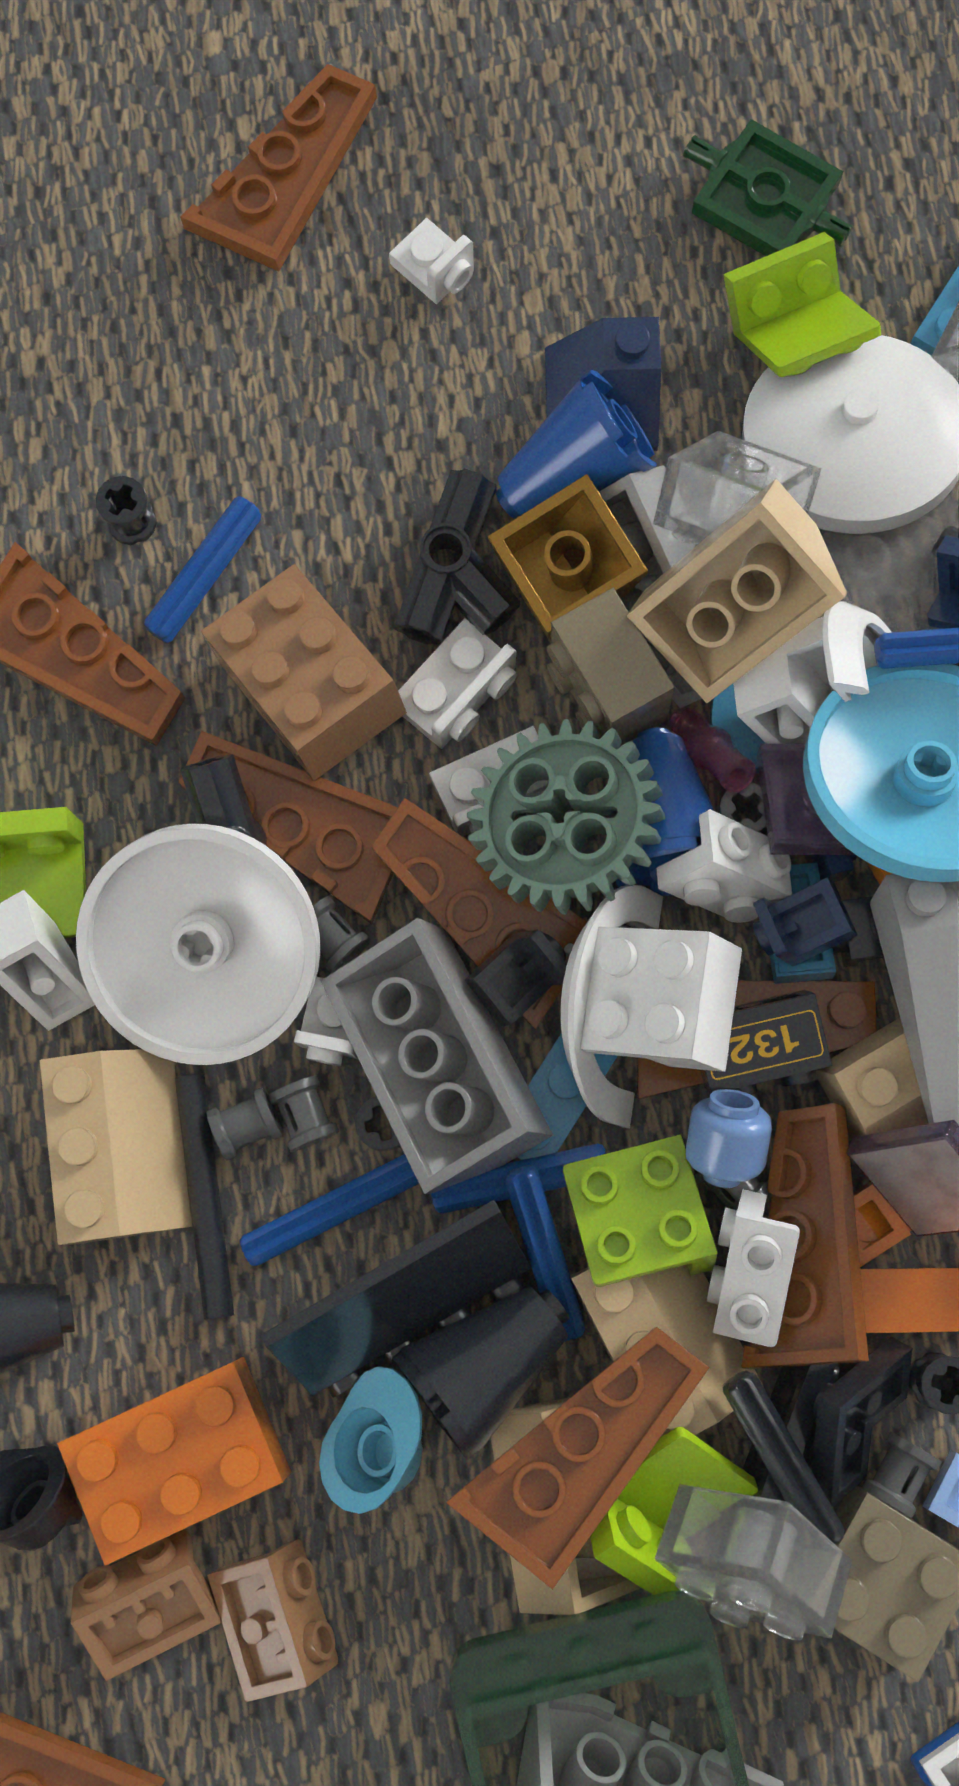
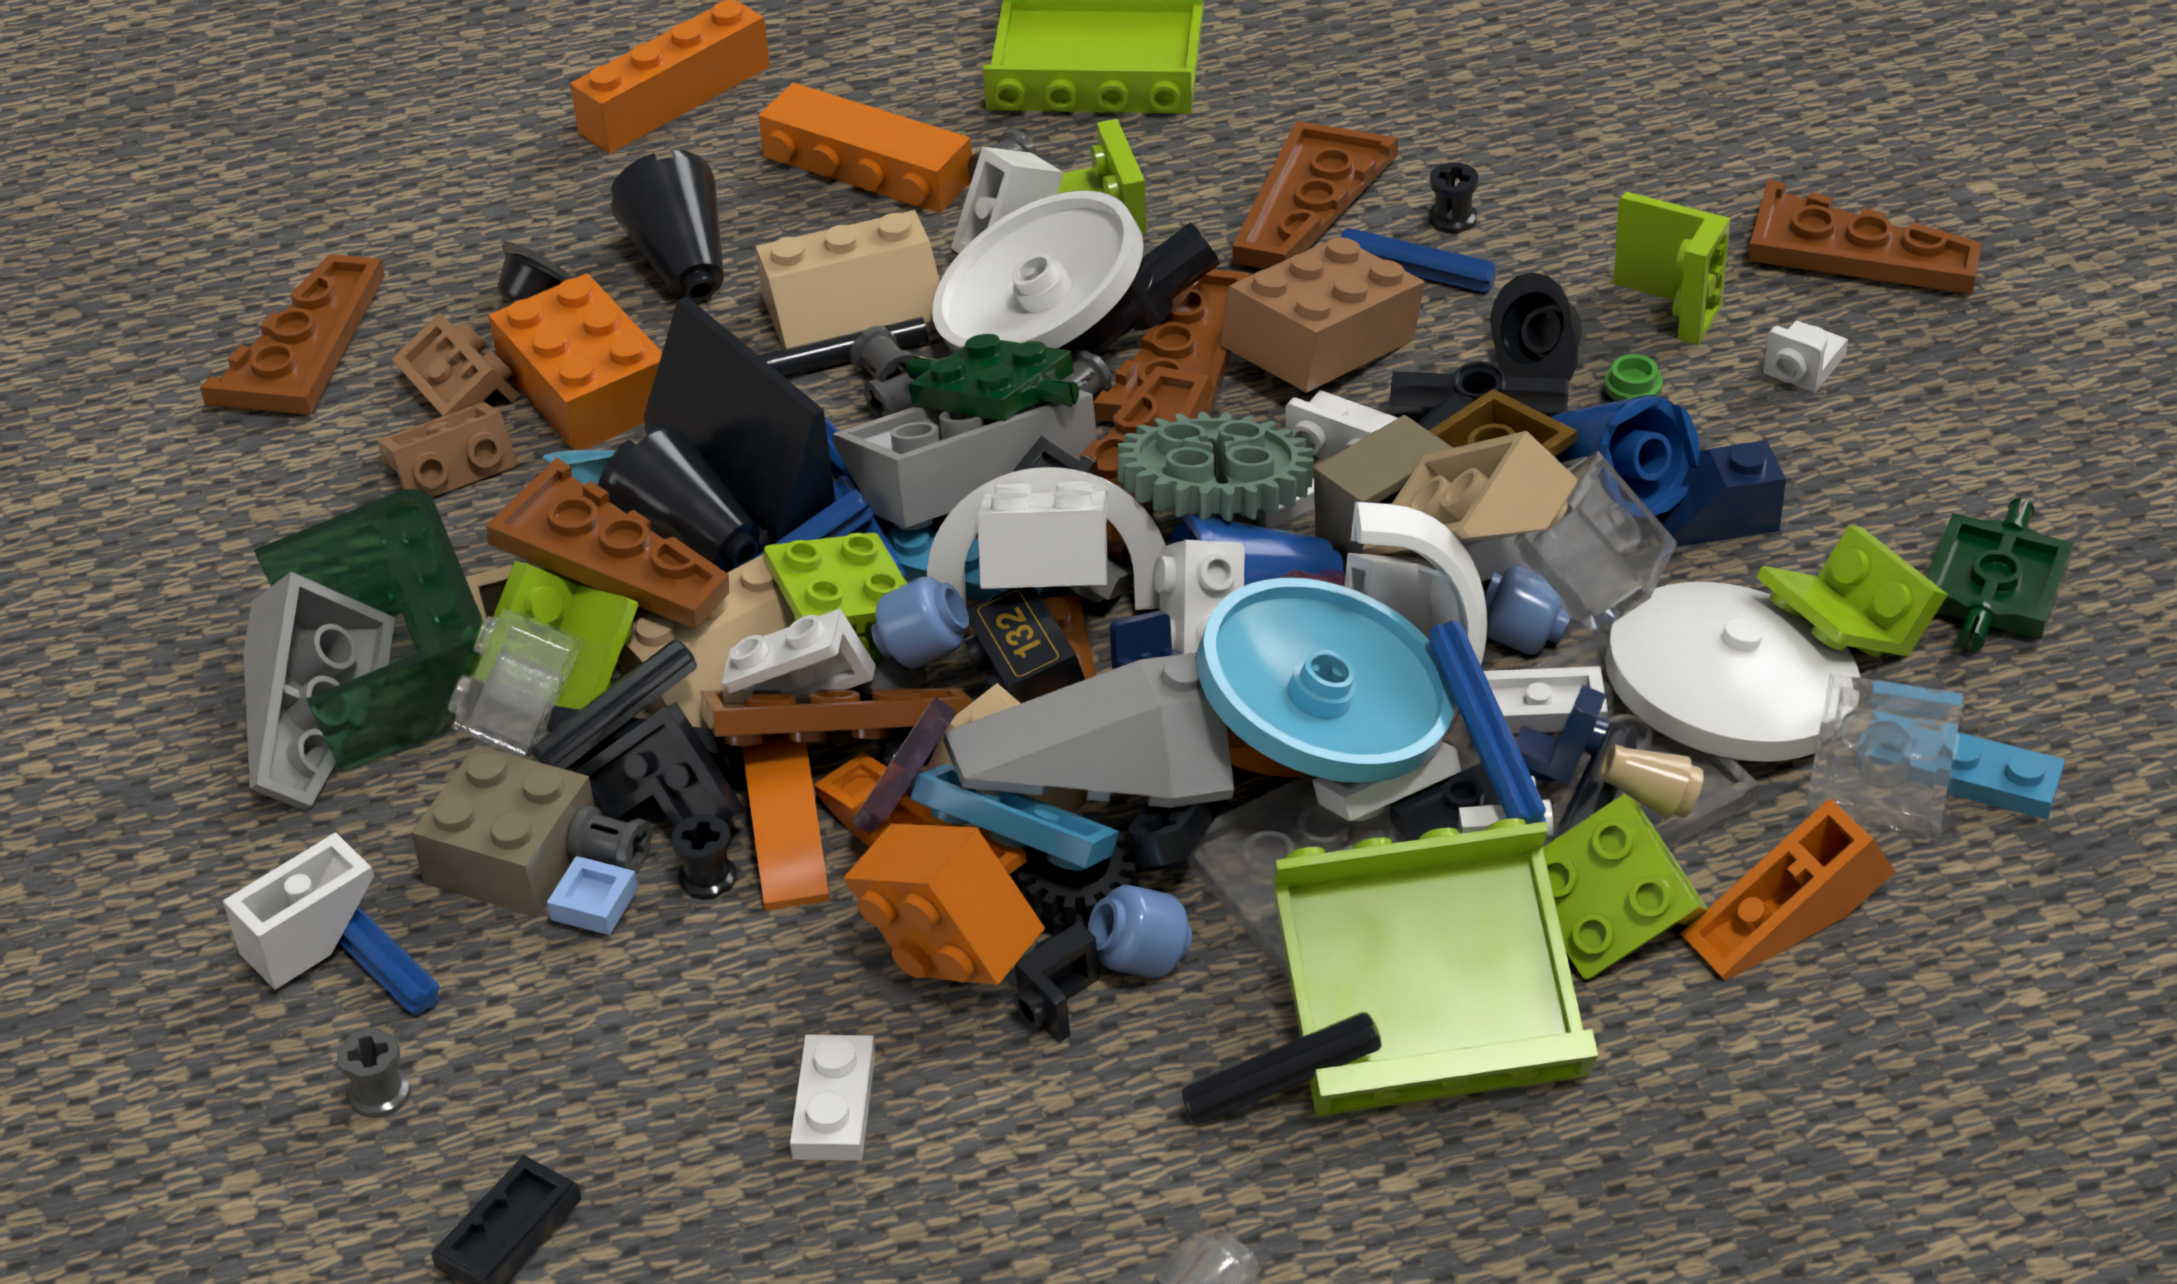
camera: 80 degrees right, 35 degrees down
(315, 306) = (1673, 256): none -> lime bracket
(373, 1016) = (993, 378): none -> dark green plate
(380, 484) = (1535, 328): none -> black piece
(438, 416) = (1633, 377): none -> bright green plate
(899, 582) = (1542, 696): none -> white plate

